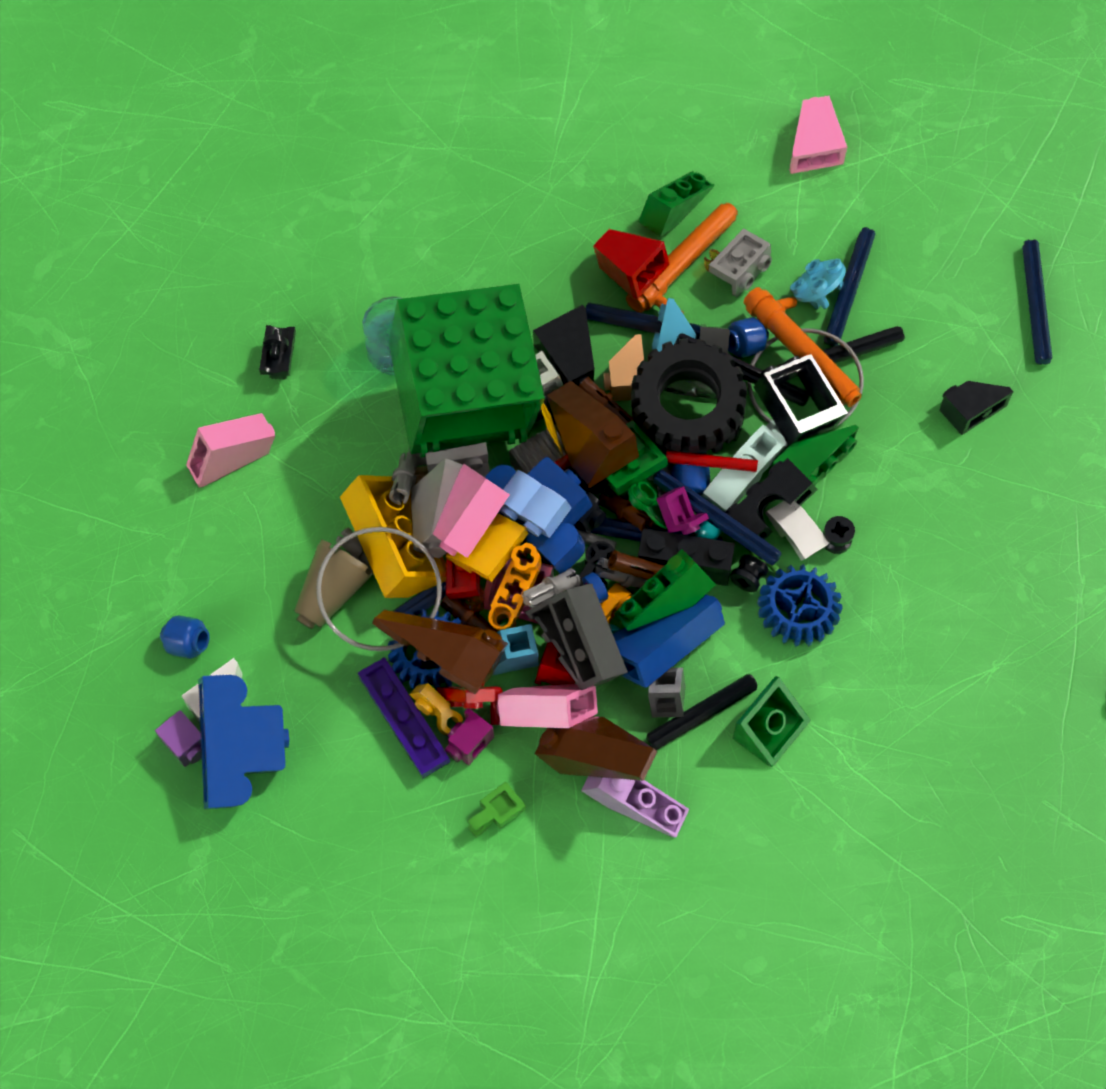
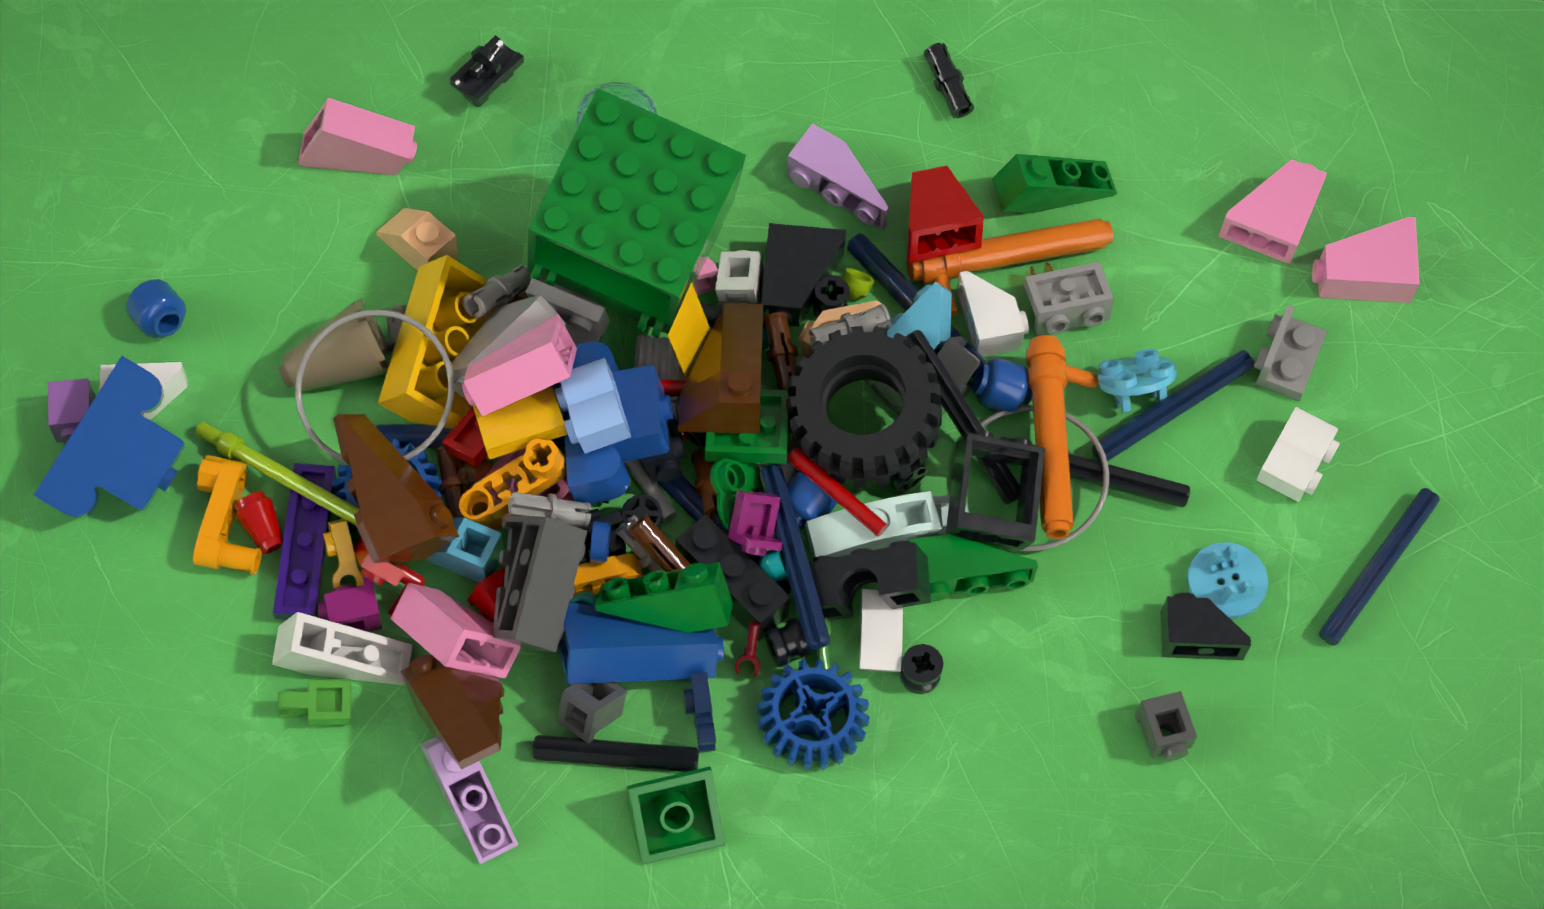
camera: 30 degrees right, 0 degrees up
(307, 689) = (234, 448): none -> lime bar
(318, 714) = (226, 483): none -> light orange beam
(319, 481) = (418, 237): none -> light nougat slope
(364, 724) = (260, 521): none -> red cone
(483, 769) = (339, 651): none -> white slope
(549, 277) = (832, 171): none -> lavender slope
(564, 180) = (948, 80): none -> black pin
(603, 350) = (839, 294): none -> black bush
(610, 335) = (858, 283): none -> lime hinge
(634, 358) = (868, 319): none -> light grey pin
(704, 301) = (990, 316): none -> white slope
(730, 646) = (698, 702): none -> dark blue plate
(733, 594) = (750, 649): none -> dark red hand
(889, 214) = (1291, 356): none -> light grey bracket
(893, 133) = (1371, 265): none -> bright pink slope
(943, 267) = (1297, 455): none -> white brick
(952, 357) = (1221, 563): none -> medium azure plate
(1003, 471) = (1171, 714): none -> dark grey brick

